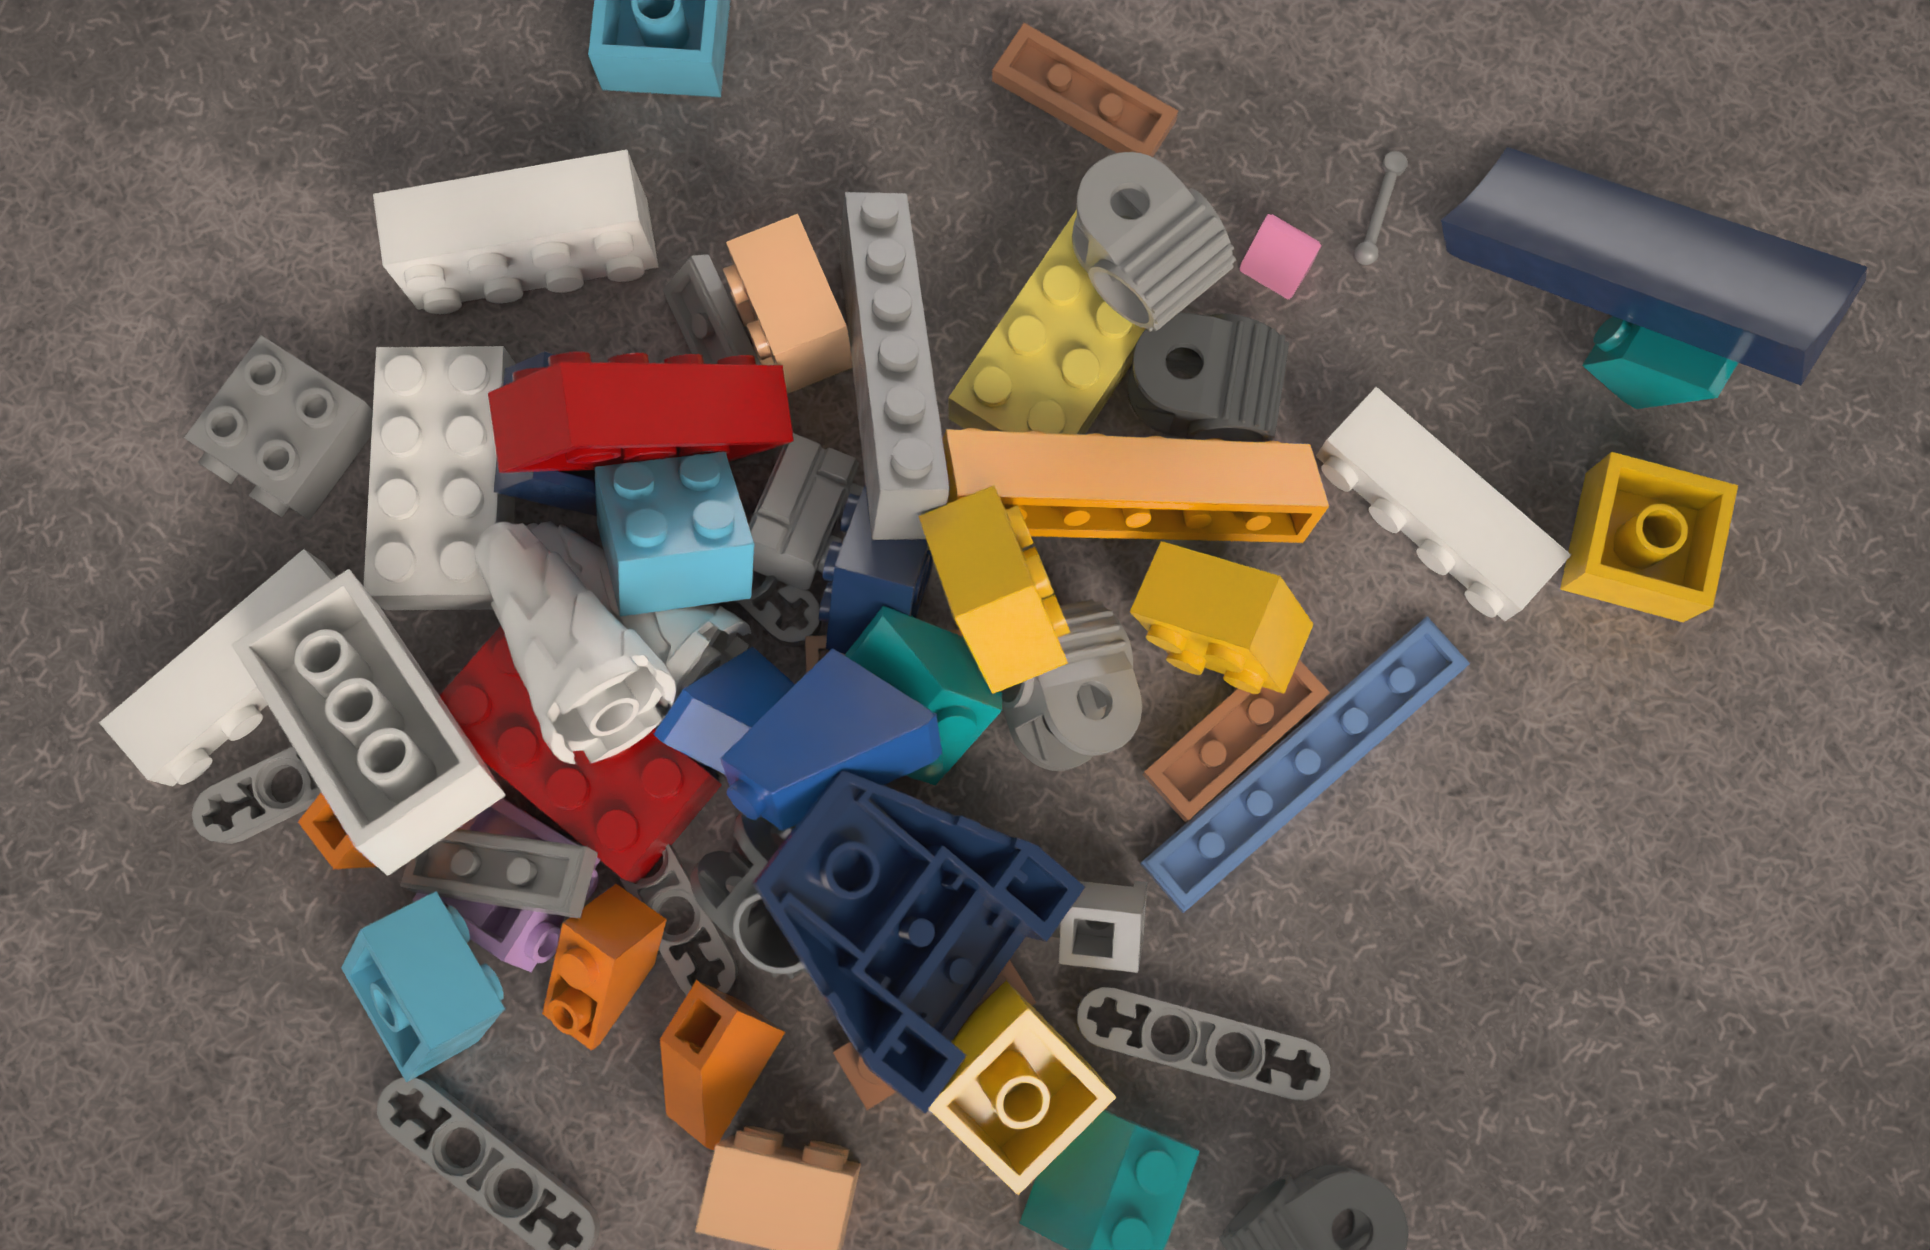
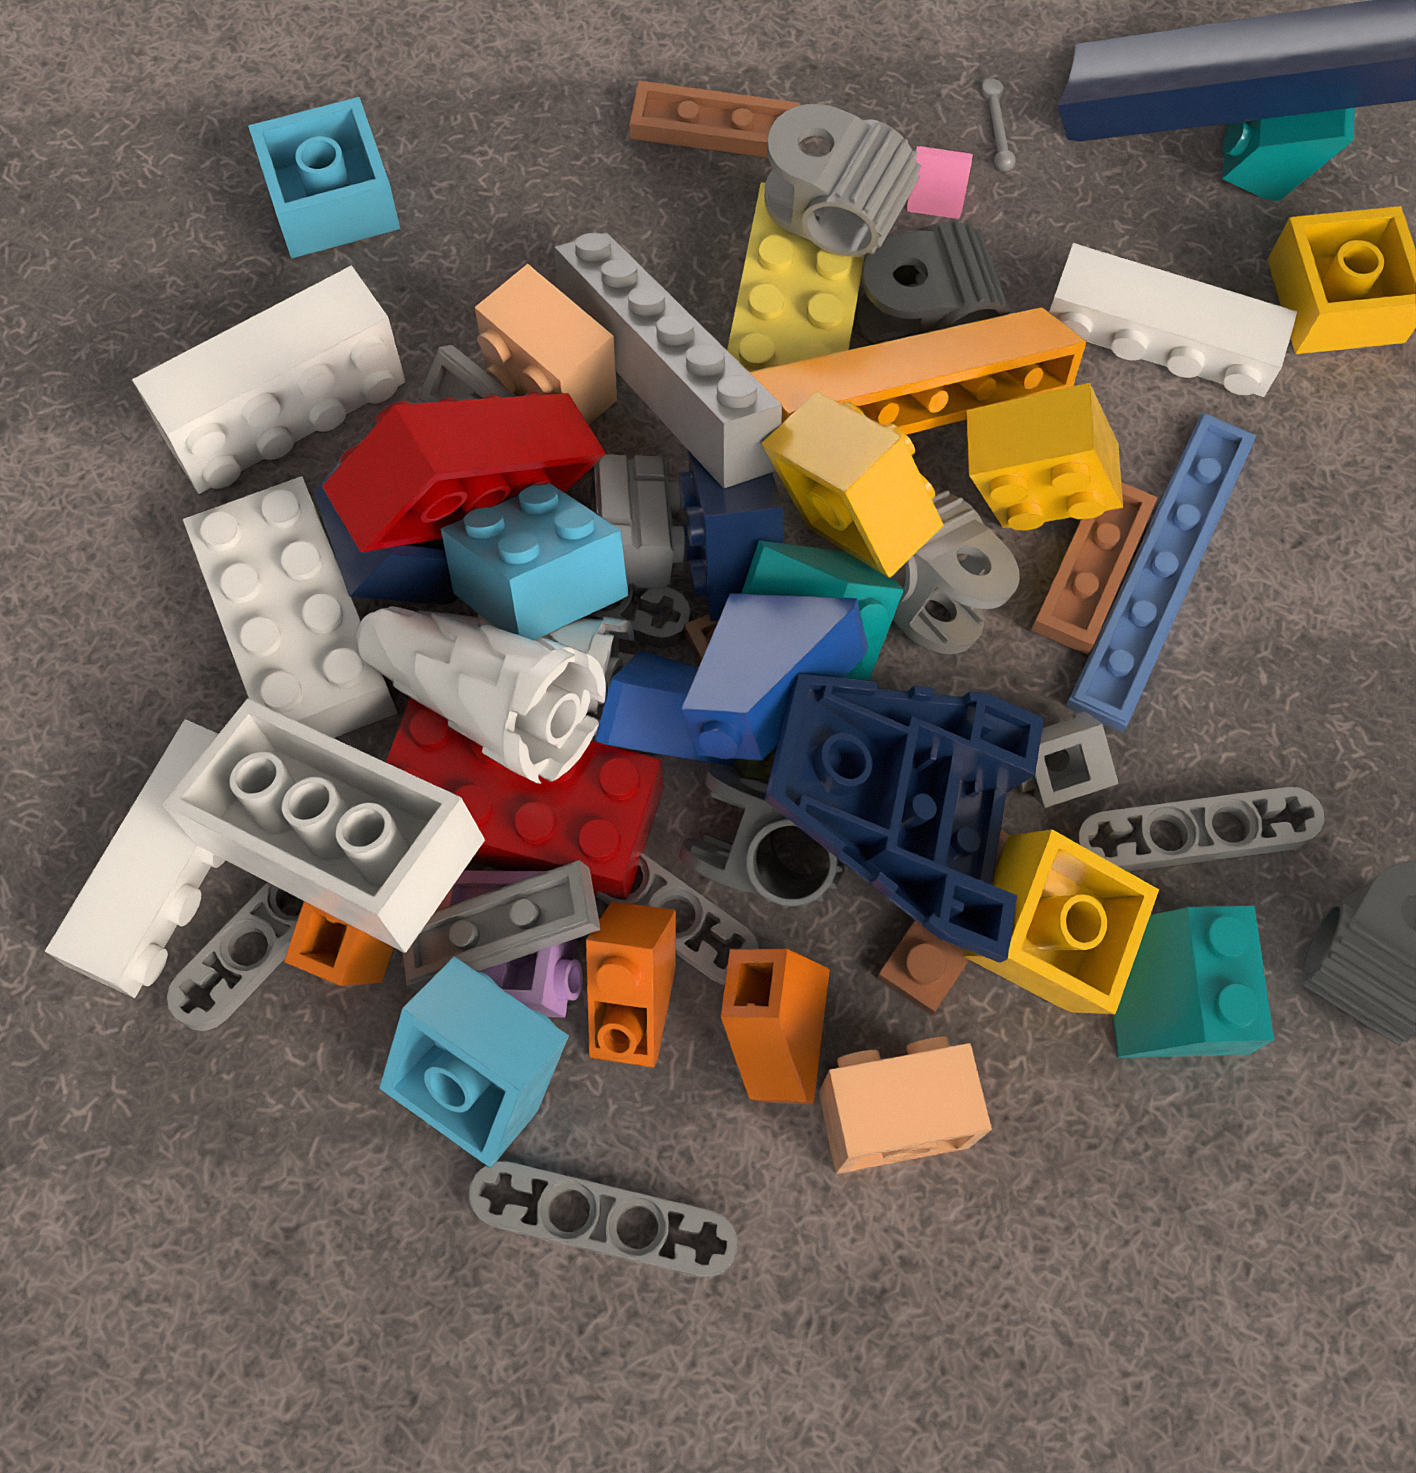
camera: 25 degrees left, 10 degrees down
(281, 430) = (117, 629): light grey brick -> none

